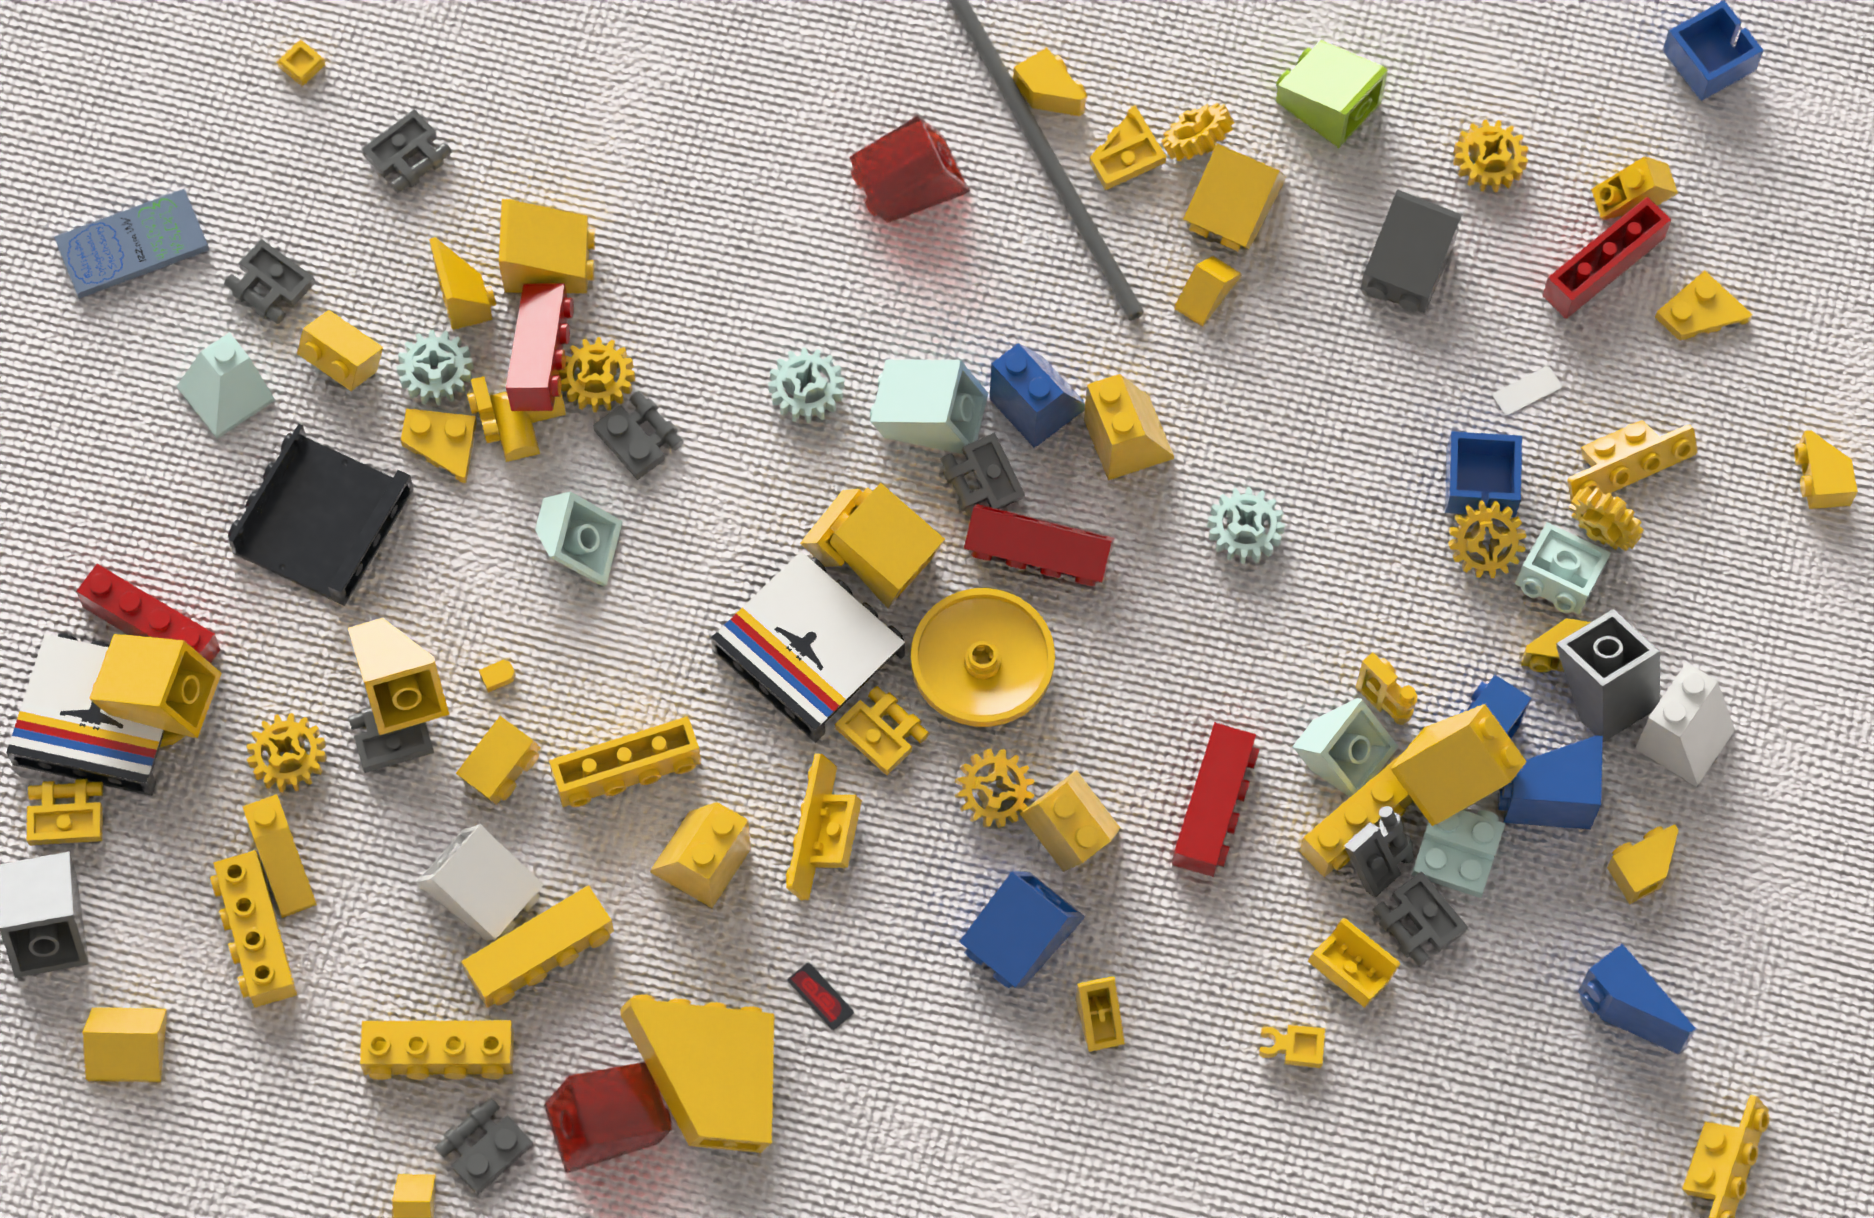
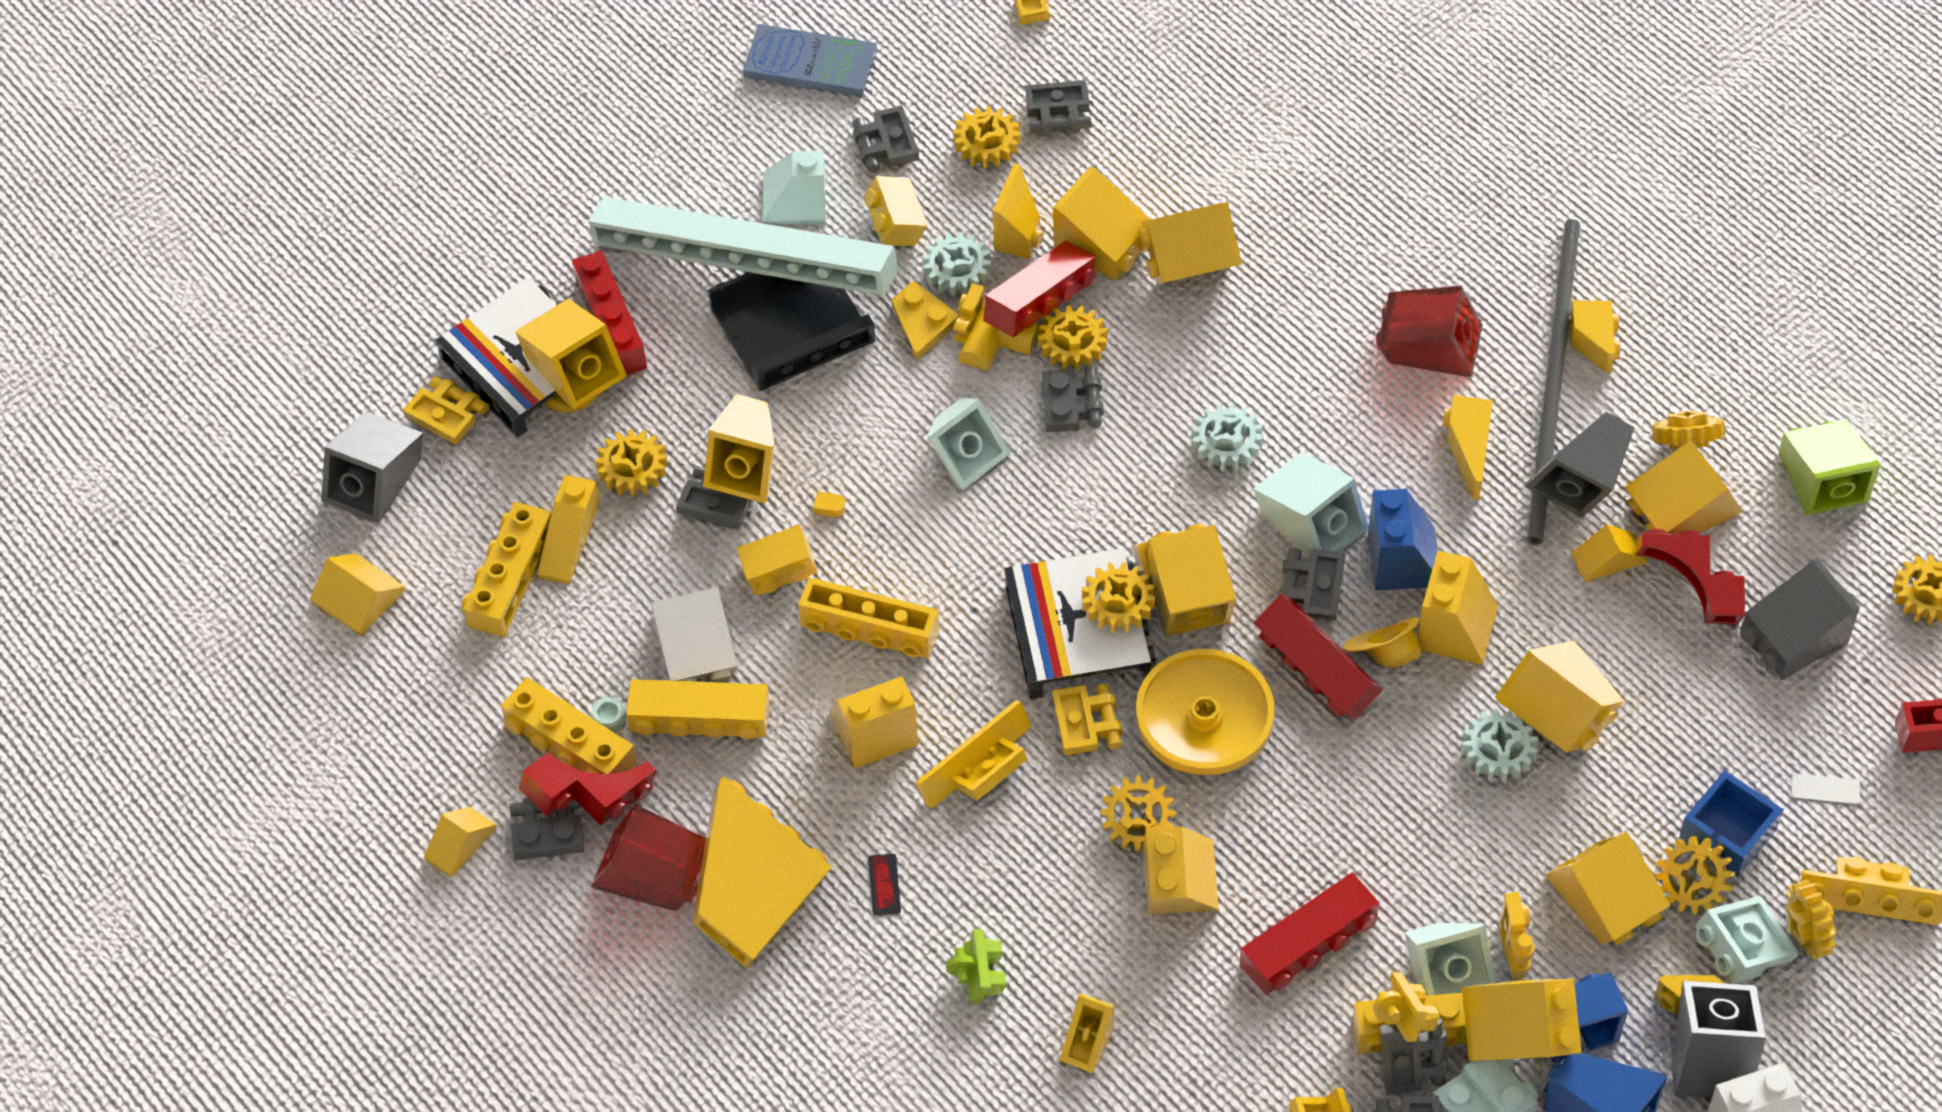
camera: 40 degrees right, 10 degrees down
(229, 475) = (744, 245): none -> light aqua brick
(347, 220) = (987, 137): none -> yellow gear
(454, 1004) = (609, 713): none -> light aqua tile
(474, 1102) = (604, 796): none -> red arch
(642, 216) = (1190, 243): none -> yellow slope
(825, 593) = (1118, 597): none -> yellow gear
(960, 1018) = (972, 967): none -> lime hips
(1015, 255) = (1468, 437): none -> yellow slope
(1020, 929) = (1075, 929): blue slope -> none
(1085, 492) = (1390, 644): none -> yellow piece
(1127, 151) = (1631, 408): yellow wing -> none
(1139, 219) = (1586, 466): none -> dark grey slope
(1275, 449) = (1561, 696): none -> yellow slope
(1327, 268) = (1689, 553): none -> red arch
(1356, 817) = (1406, 1008): none -> yellow hips
(1425, 595) = (1610, 889): none -> yellow slope

